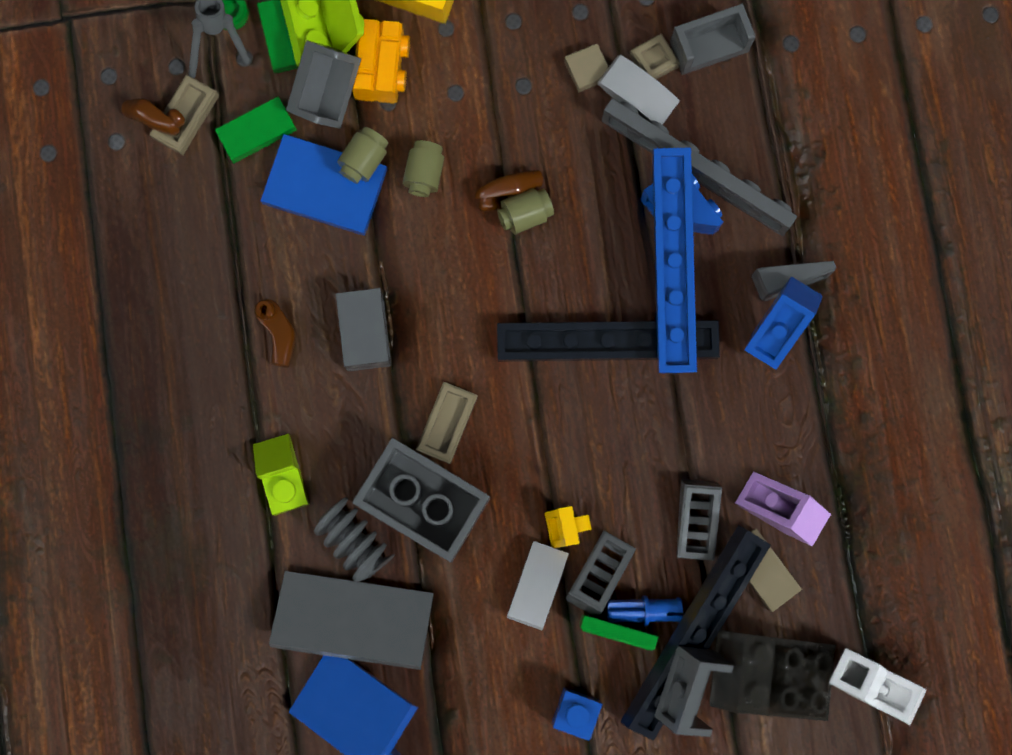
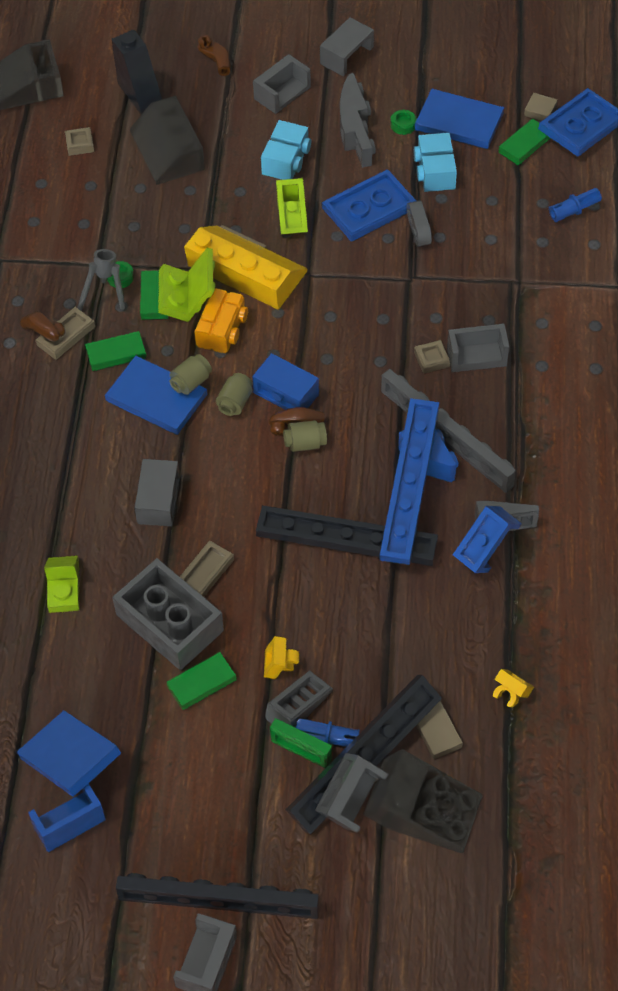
camera: 15 degrees right, 25 degrees down
(280, 329) = (93, 483): reddish brown arm -> none
(323, 84) = (174, 323): dark grey panel -> none
(352, 541) = (105, 635): dark grey piece -> none
(352, 620) = (88, 692): dark grey tile -> none
(480, 571) = (201, 681): none -> green tile
(484, 141) = (285, 384): none -> blue panel
(537, 585) = (244, 697): light grey slope -> none
(576, 714) = (250, 795): blue brick -> none
(586, 67) = (378, 353): dark tan tile -> none
(633, 85) = (414, 370): light grey slope -> none
(685, 518) = (395, 653): dark grey slope -> none
(783, 508) = (461, 678): lavender slope -> none
(848, 503) = (512, 684): none -> yellow tile
(877, 686) = (503, 823): white brick -> none

